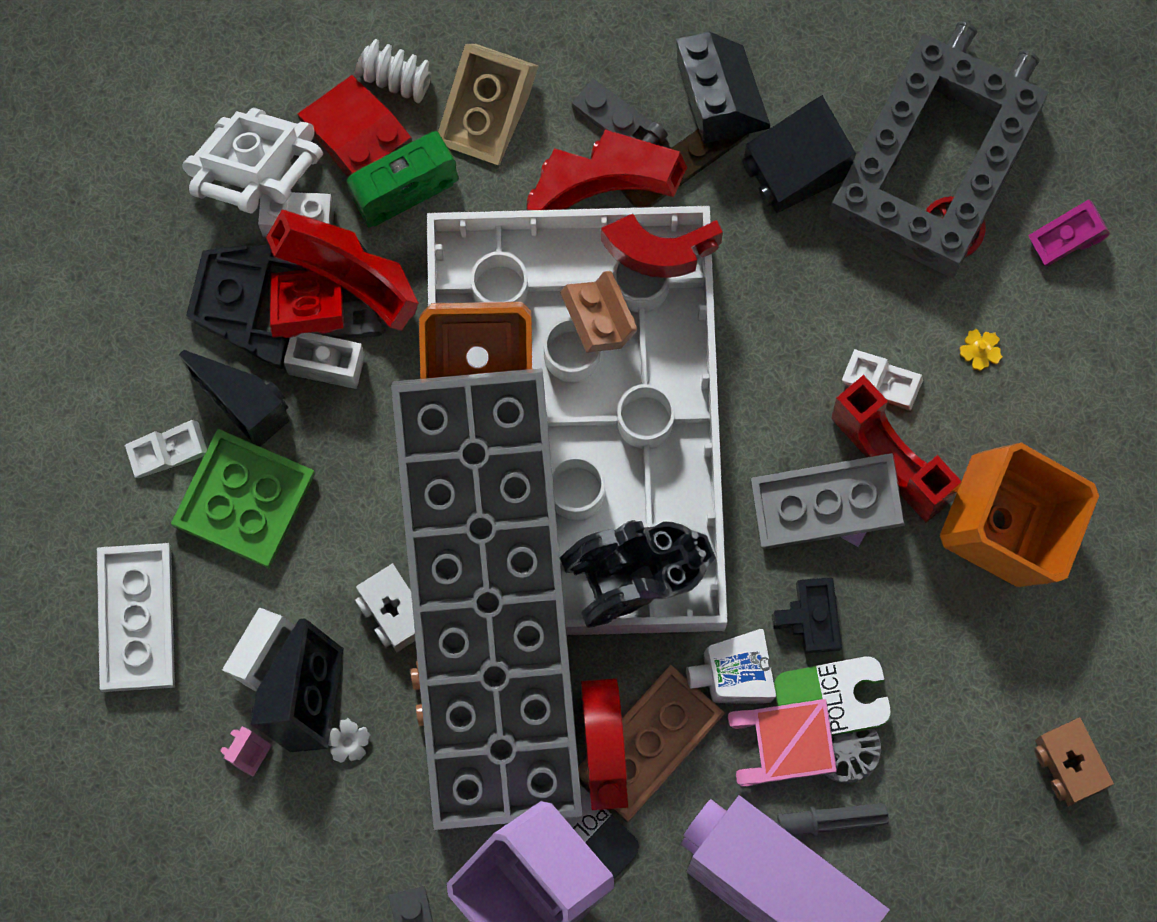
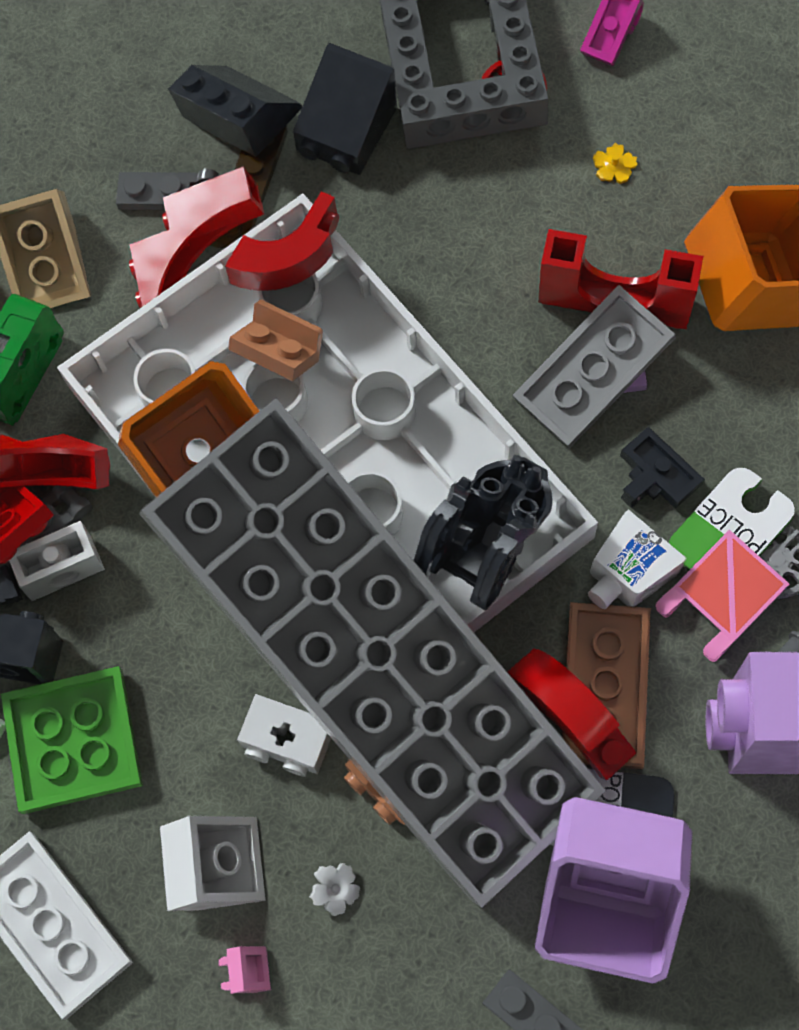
camera: 30 degrees left, 5 degrees down
(300, 690) = (257, 875): black slope -> none
(894, 383) = (532, 239): white slope -> none

